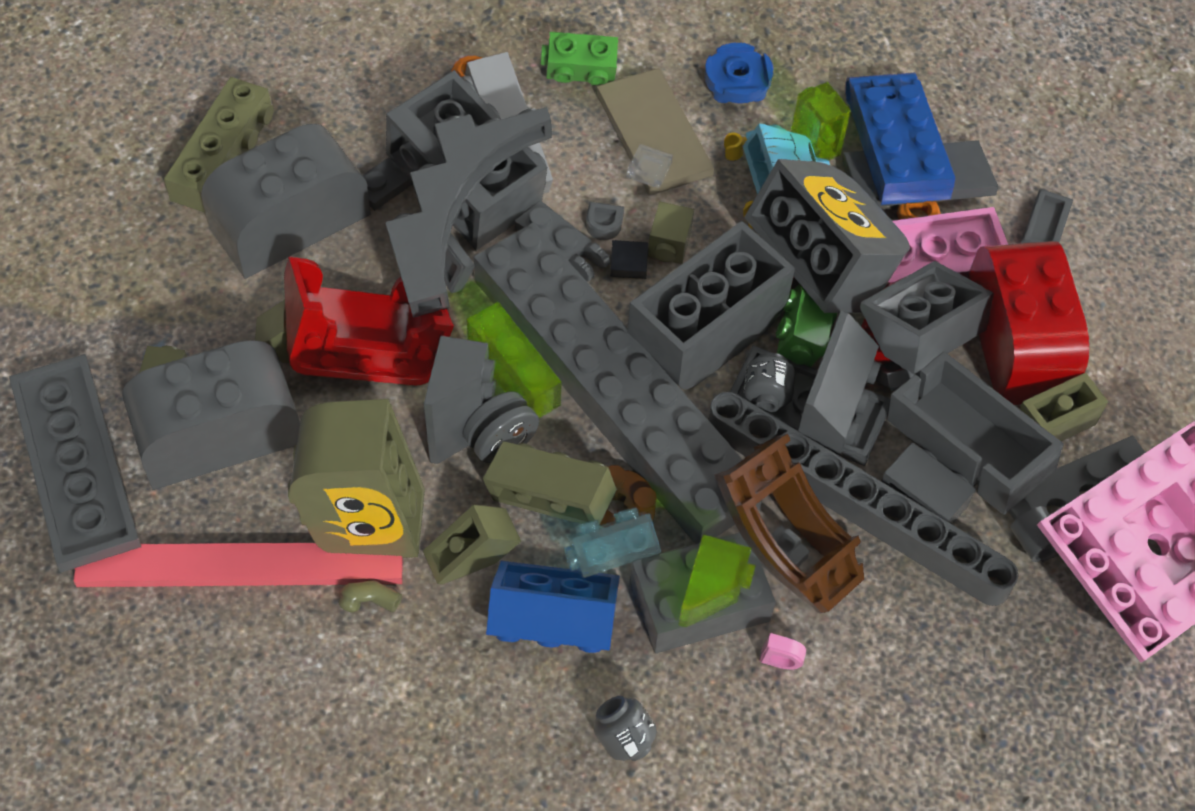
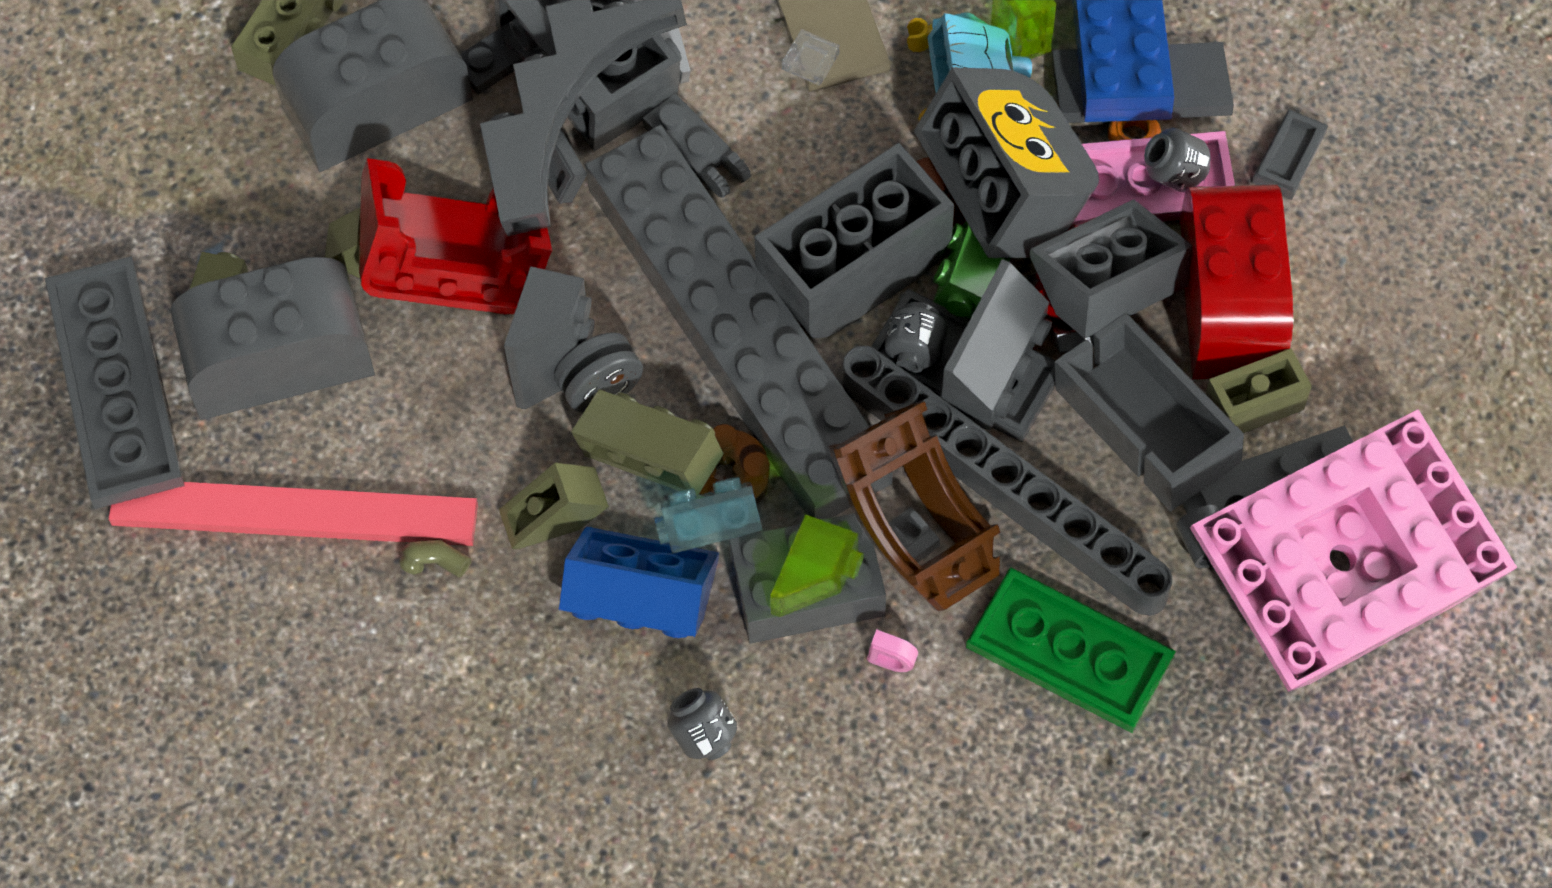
camera: 10 degrees right, 5 degrees up
(357, 480) = (427, 428): olive brick -> none
(516, 360) = (622, 292): clear neon green brick -> none
(604, 220) = (750, 122): dark grey tile -> none
(629, 259) = (774, 173): black tile -> none
(670, 232) = (826, 143): olive brick -> none
(929, 483) = (1088, 471): dark grey brick -> none
(936, 640) = (1071, 649): none -> green tile
(964, 228) = (1177, 159): none -> dark grey head

